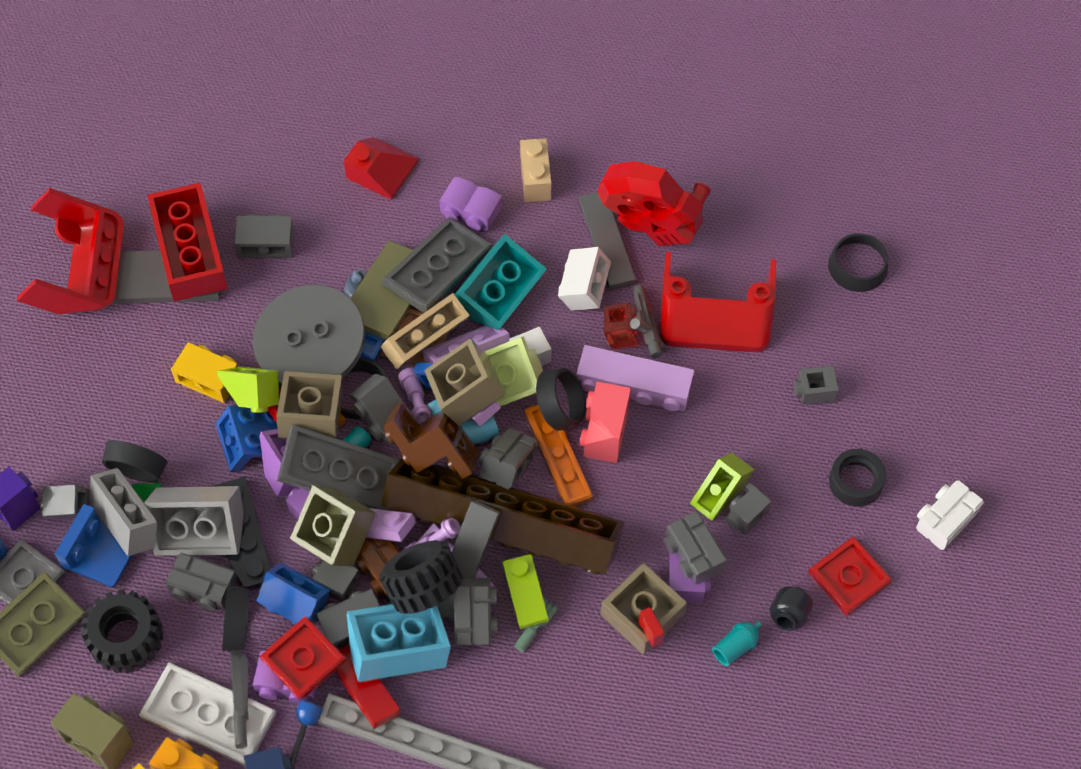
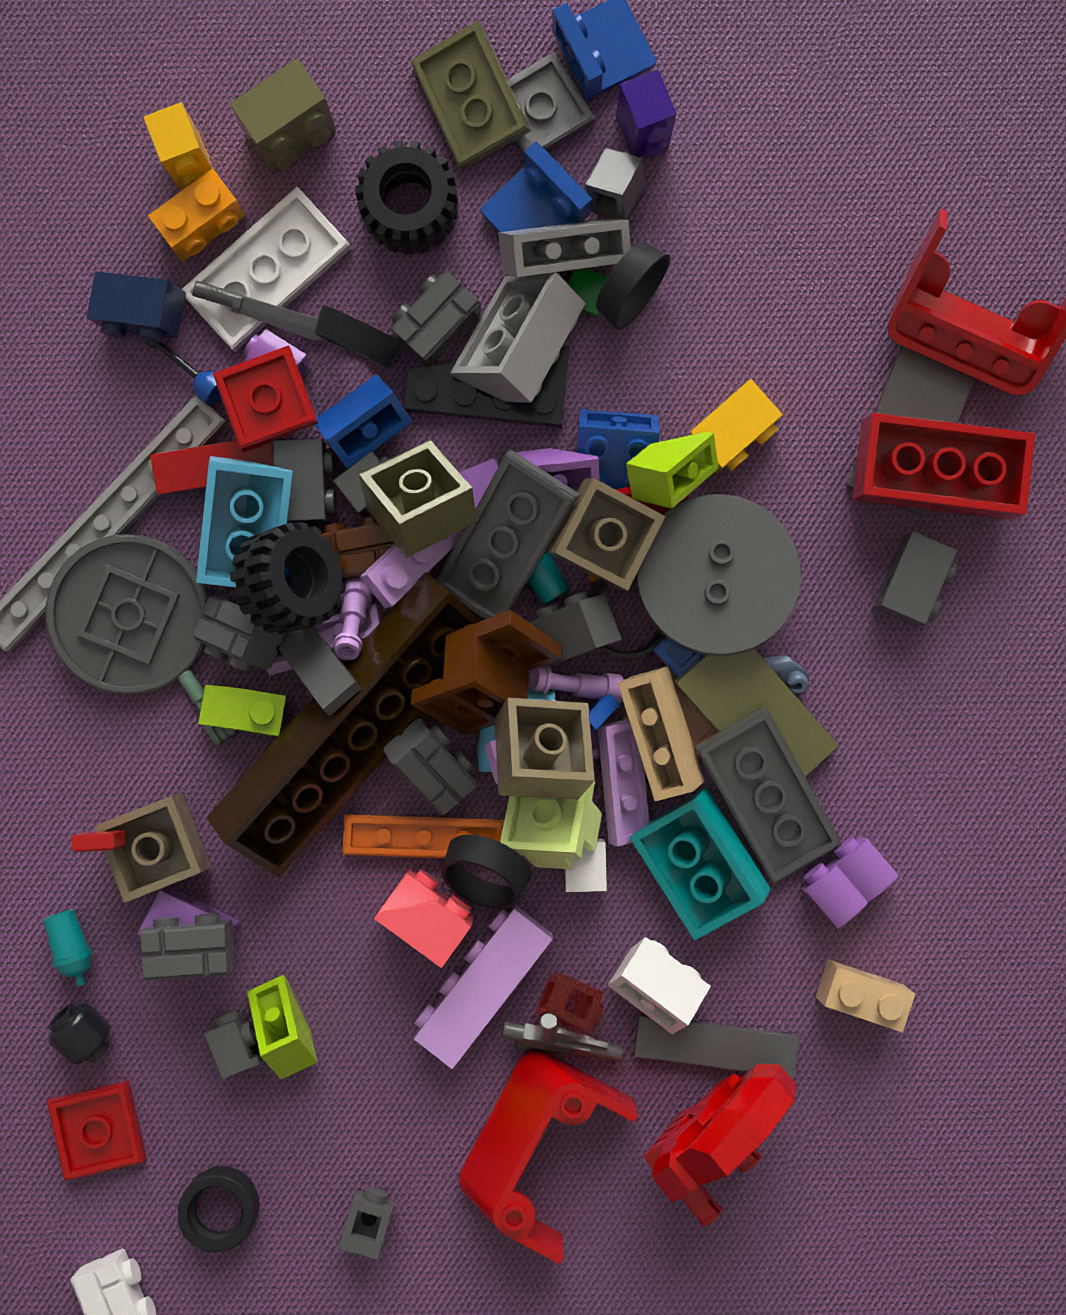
camera: 115 degrees right, 25 degrees up
(379, 166) = (968, 783): red slope -> none
(493, 700) = (126, 614): none -> dark grey plate

